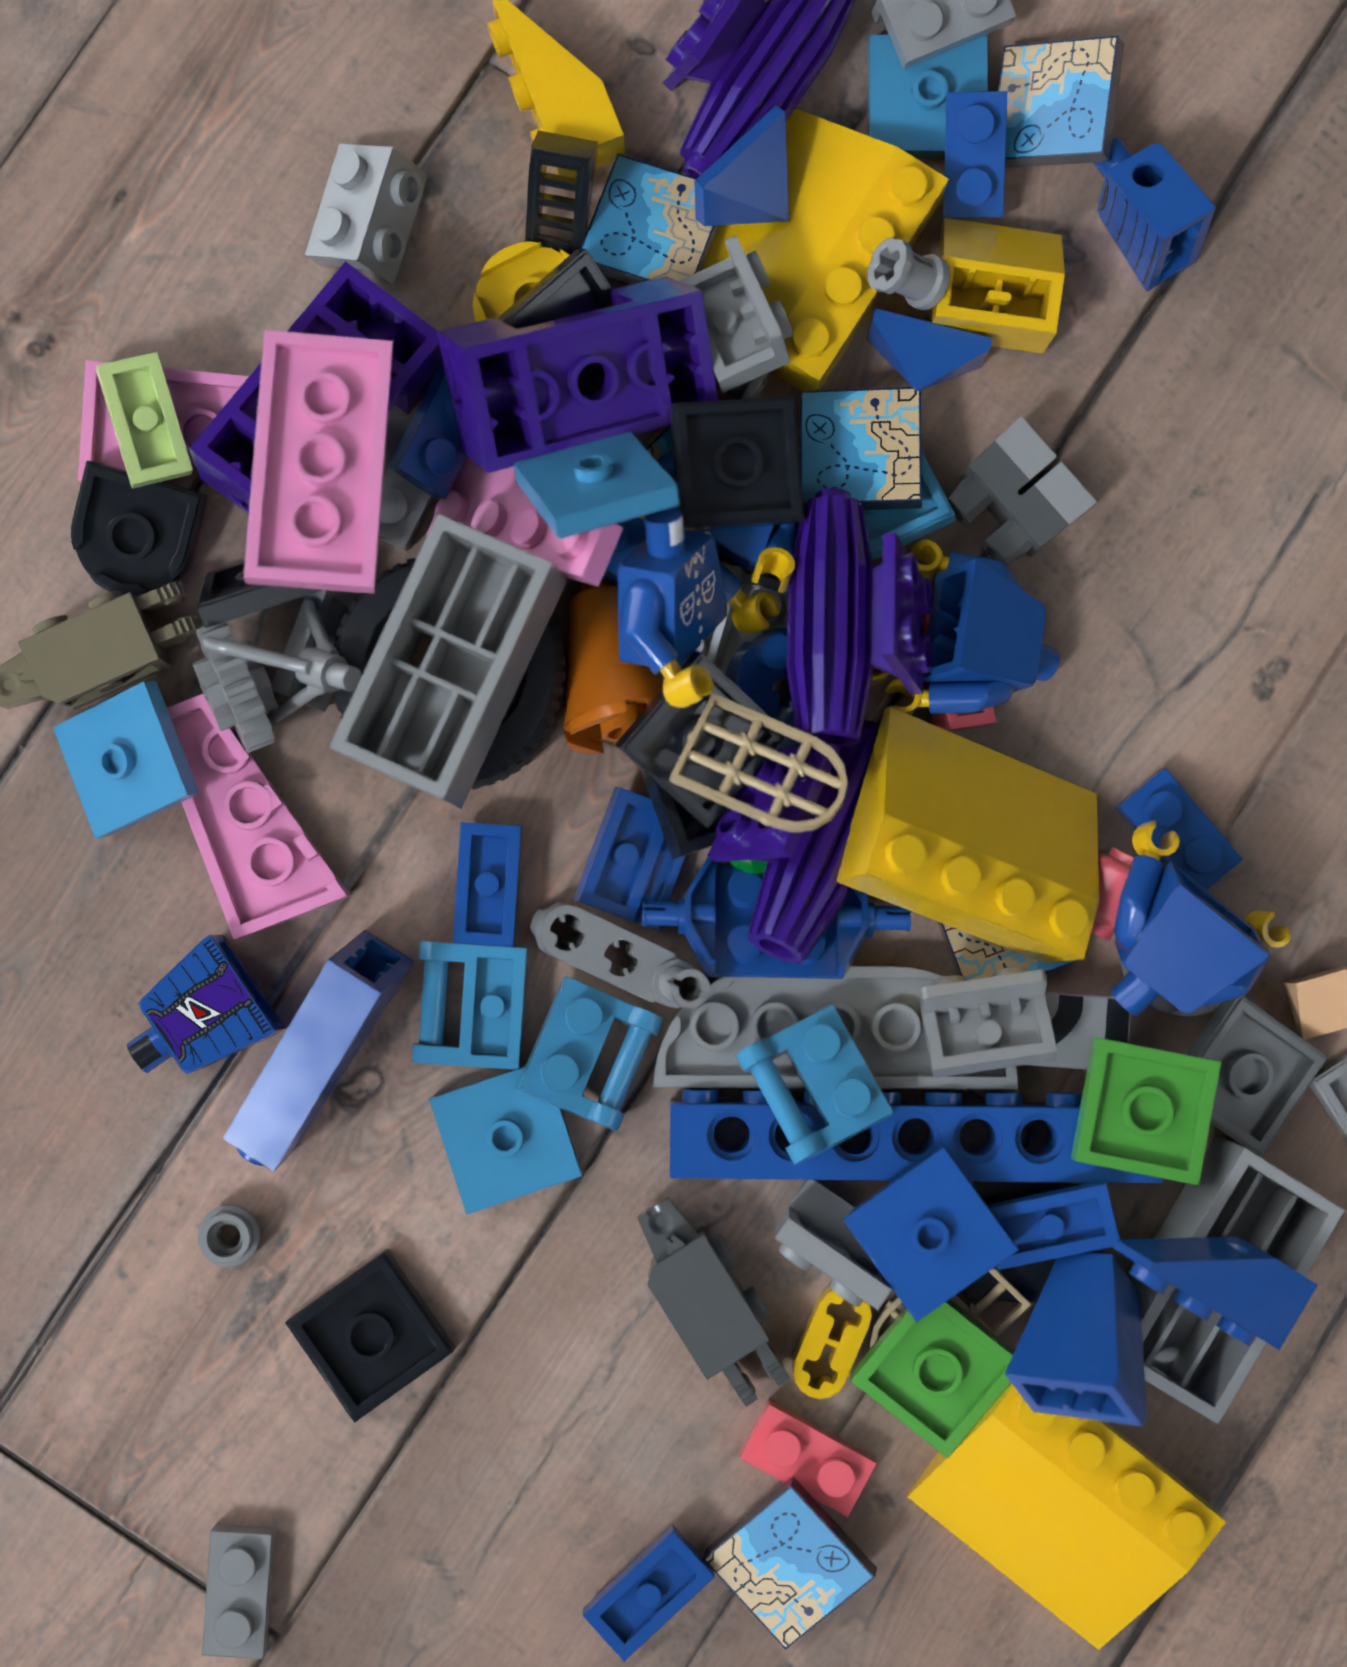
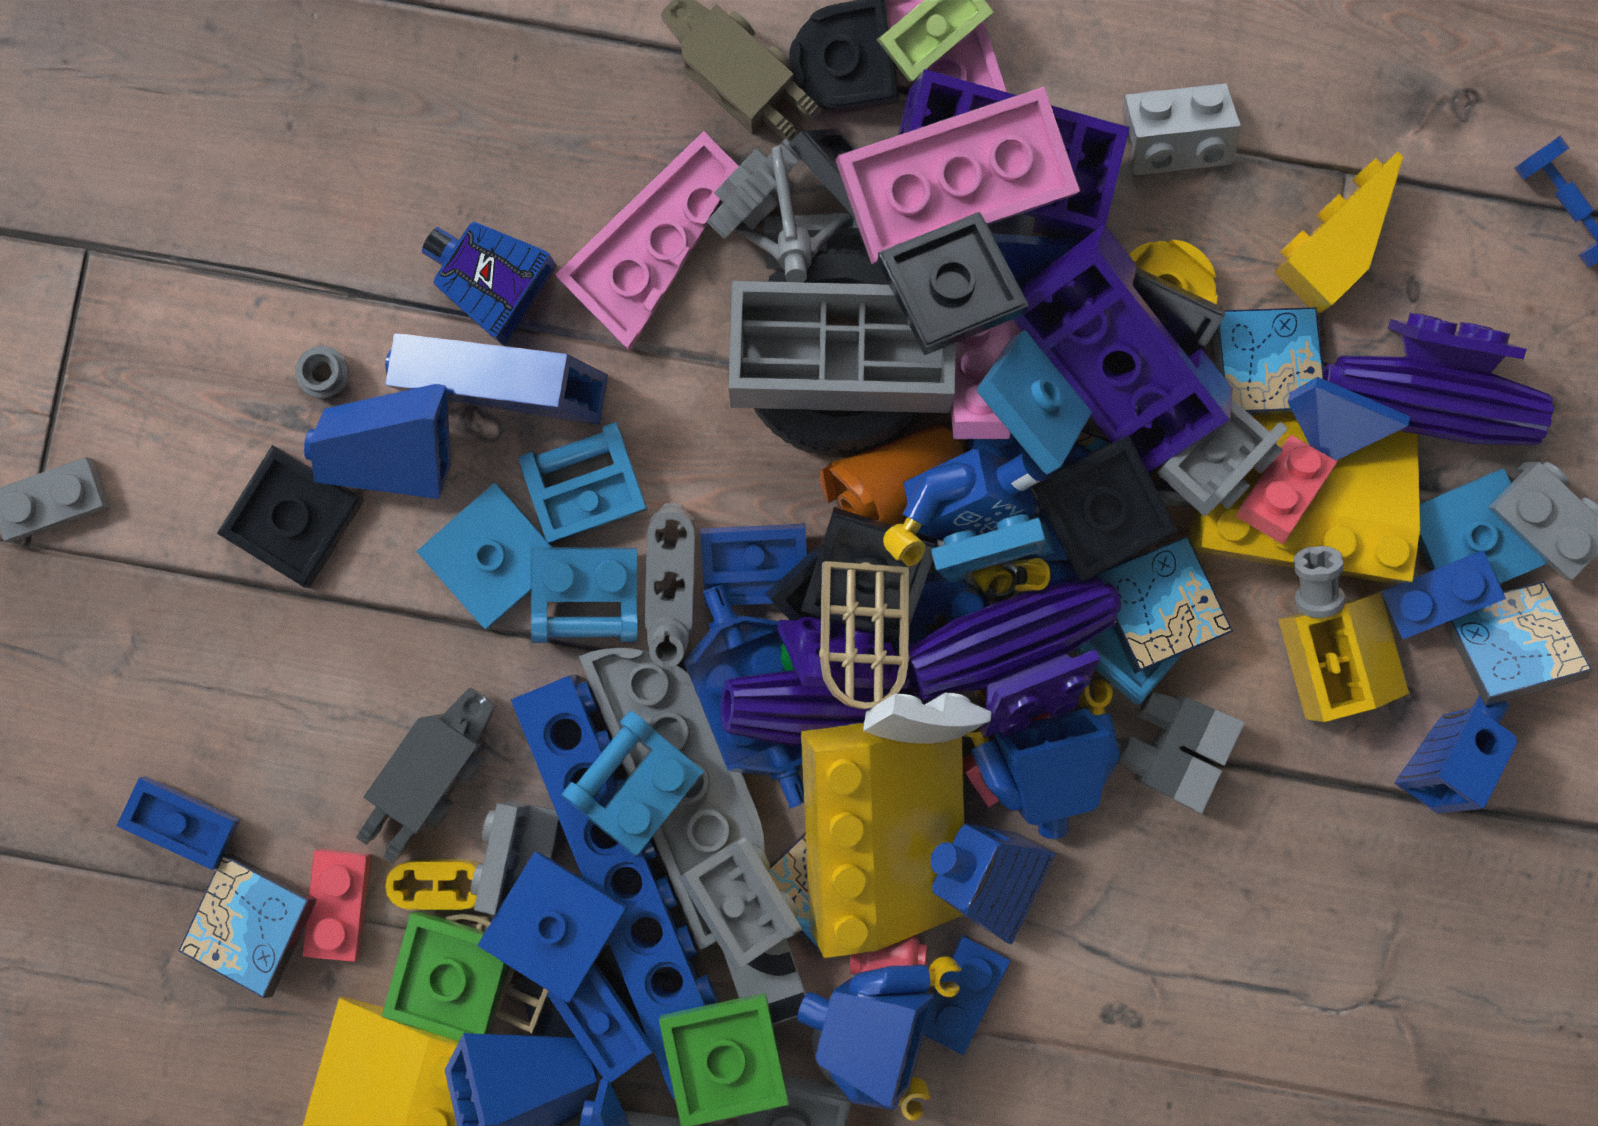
camera: 70 degrees right, 0 degrees up
(126, 759) = (661, 129): dark azure plate -> none
(336, 1198) = (385, 443): none -> blue slope
(433, 515) = (952, 283): none -> black tile
(487, 884) = (683, 455): blue plate -> none
(564, 153) = (1295, 267): black slope -> none
(724, 622) = (1013, 539): none -> dark azure plate
(798, 265) = (1286, 489): none -> coral plate
(887, 733) = (910, 721): none -> white slope
(925, 350) = (1264, 622): blue slope -> none
(1070, 749) = (990, 876): none -> blue torso

